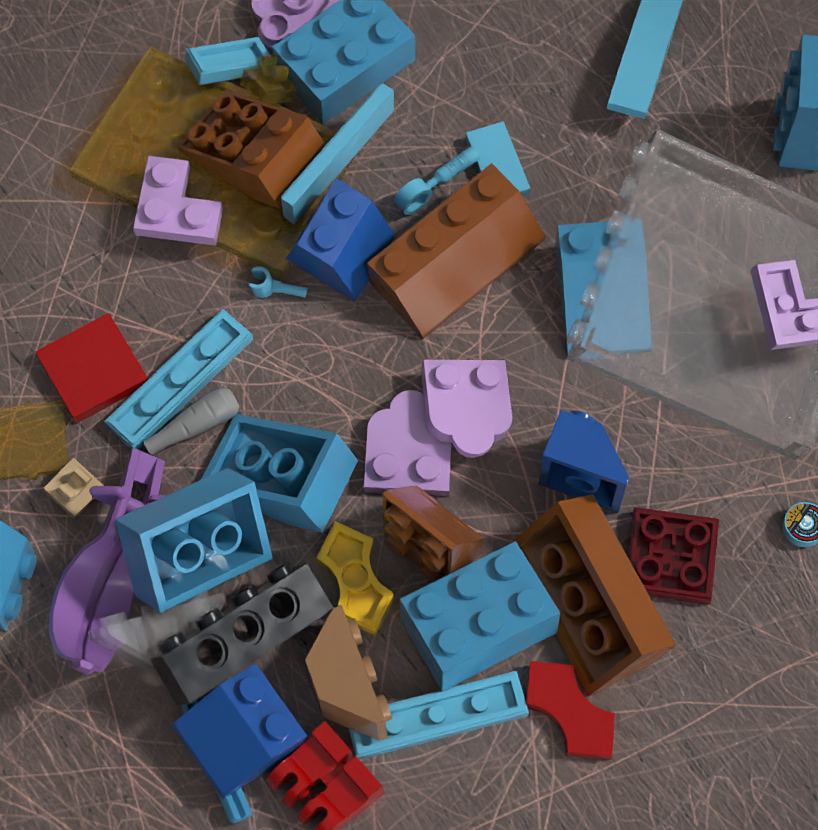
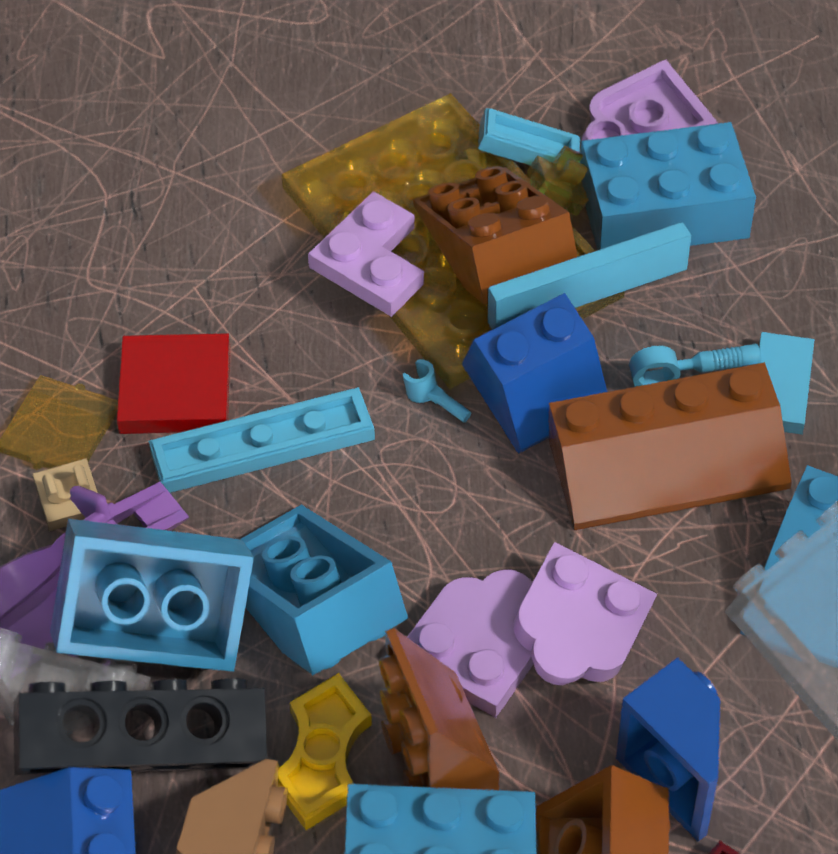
camera: 30 degrees right, 15 degrees down
(196, 419) = (255, 487): light grey piece -> none

